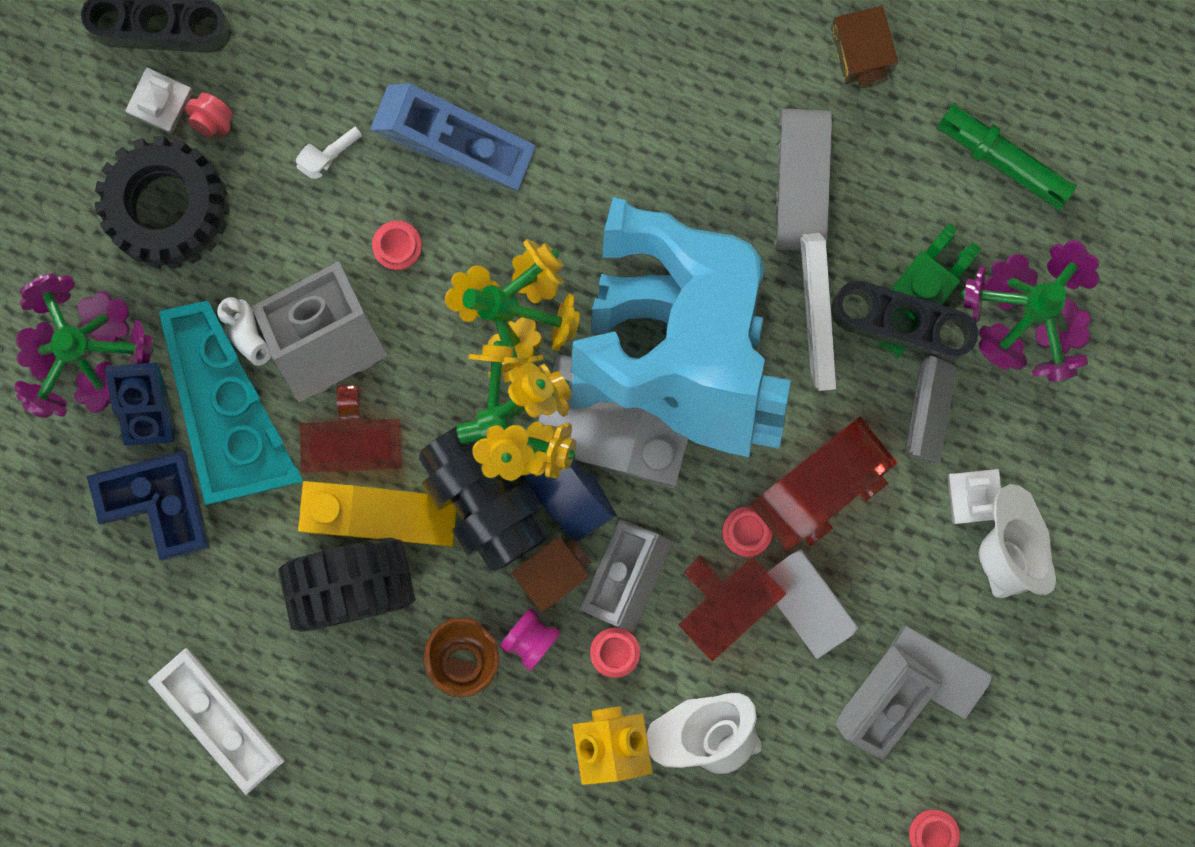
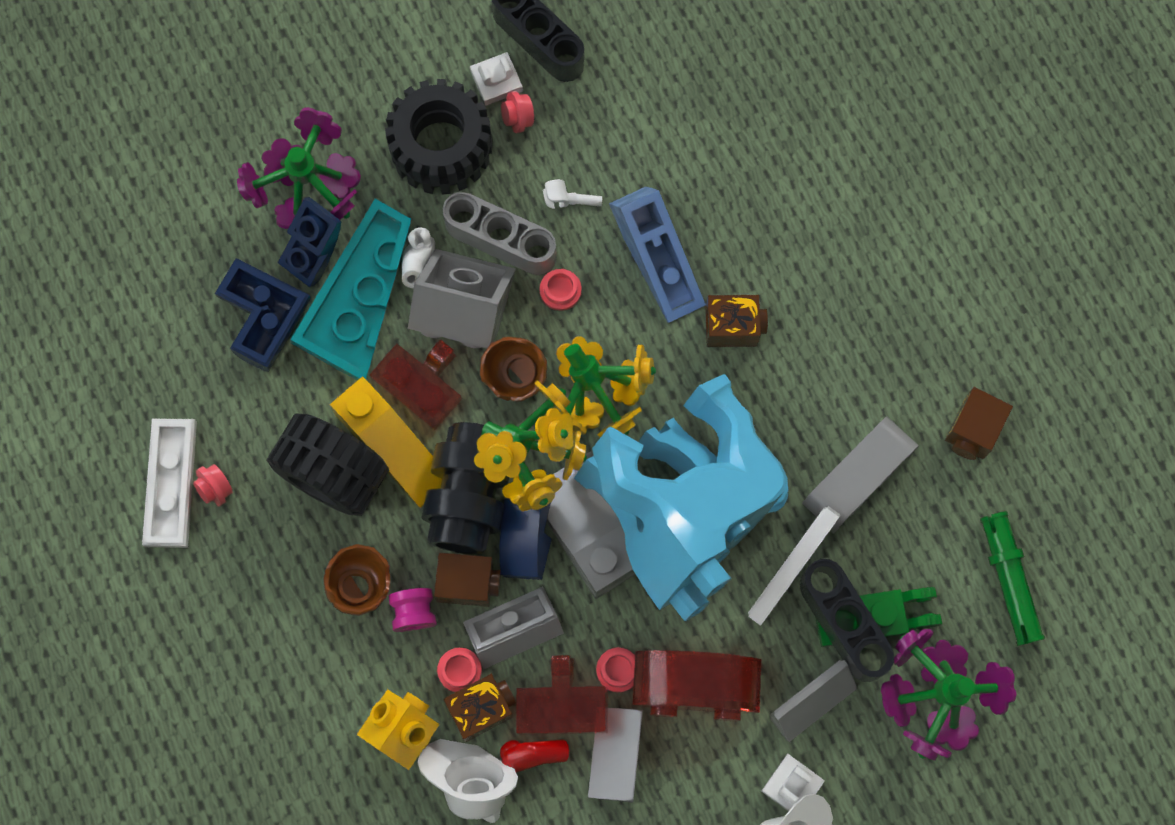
camera: 40 degrees right, 10 degrees down
(257, 690) = (212, 485): none -> coral plate
(275, 236) = (490, 217): none -> light grey beam
(425, 338) = (523, 359): none -> dark orange hair
(576, 139) = (734, 321): none -> reddish brown brick
(663, 667) = (480, 706): none -> reddish brown brick
(741, 666) = (532, 754): none -> red arm

